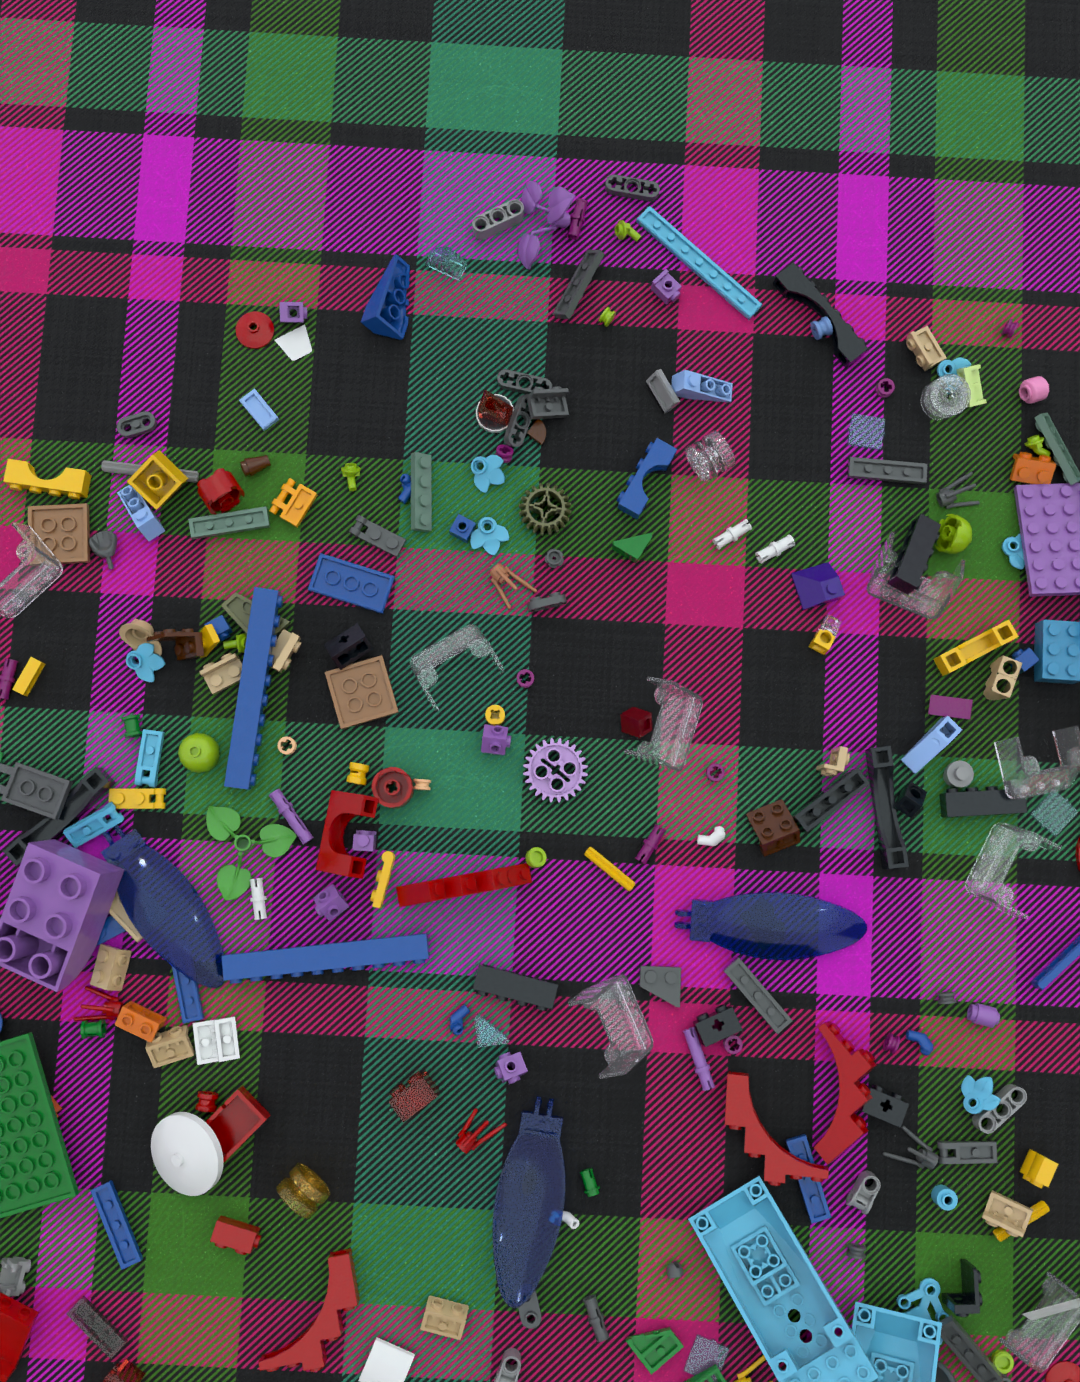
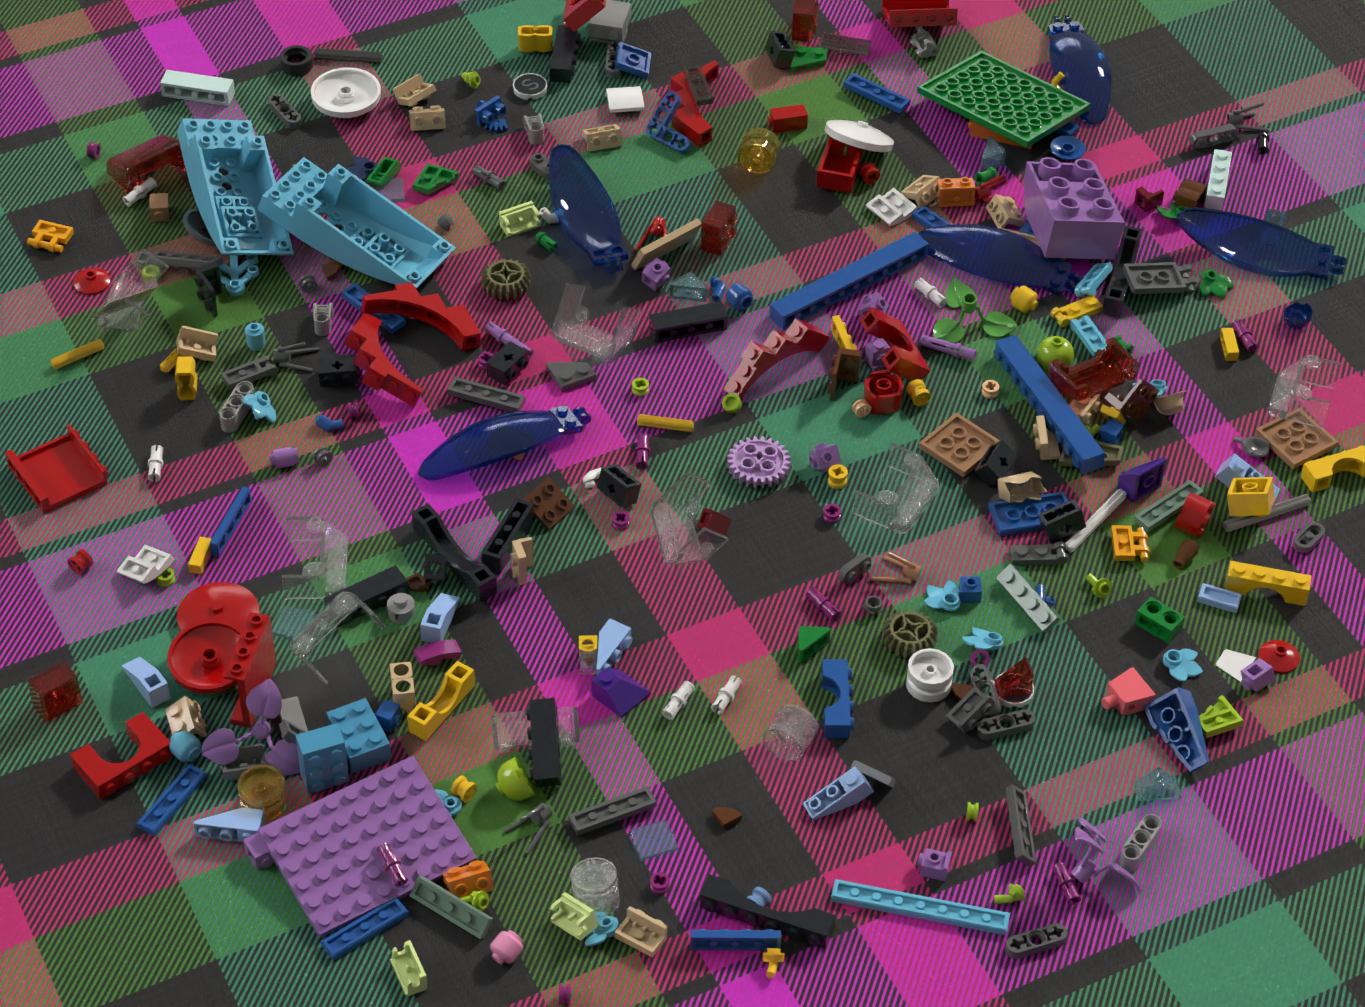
camera: 155 degrees right, 35 degrees down
(64, 1057) = (993, 155): none -> clear light blue slope
(149, 1329) = (808, 57): none -> green wing
(176, 1351) = (780, 49): none -> black brick
(178, 835) = (1024, 299): none -> yellow head
(188, 694) = (1106, 371): none -> clear red windscreen
(211, 393) = (1291, 585): none -> yellow arch
(235, 556) = (1142, 479): none -> dark purple slope
(302, 544) = (1095, 520): none -> white axle
(306, 1330) = (698, 85): none -> clear smoke plate
(331, 408) = (1159, 620): none -> green brick
(338, 548) = (1062, 521): none -> black brick
(340, 360) = (1182, 664): none -> medium azure plate
(346, 608) = (1031, 492): none -> tan piece
(351, 294) = (1220, 718): none -> lime wing
(377, 1289) = (663, 130): none -> blue beam
(406, 833) = (845, 368): none -> reddish brown bracket
(408, 354) = (1128, 693): none -> coral torso
(447, 991) = (739, 297): none -> blue head
(479, 1100) = (666, 244): none -> tan tile
(563, 443) = (929, 675): none -> white wheel
(595, 583) = (823, 604): none -> magenta pin
(599, 1231) = (519, 218): none -> yellowish green hinge
(608, 922) = (640, 386): none -> lime bush
(667, 1150) = (506, 279): none -> olive gear
(700, 806) = (618, 485): none -> black brick
(799, 420) = (726, 816): none -> reddish brown tile
(800, 636) = (612, 642): none -> light blue slope
(823, 1262) = (331, 269): none -> reddish brown tile
(836, 277) = (773, 956): none -> yellow plate
(862, 306) = (735, 939): none -> blue plate
(931, 800) = (417, 583): none -> reddish brown tile
(996, 553) = (463, 789): none -> yellow wheel

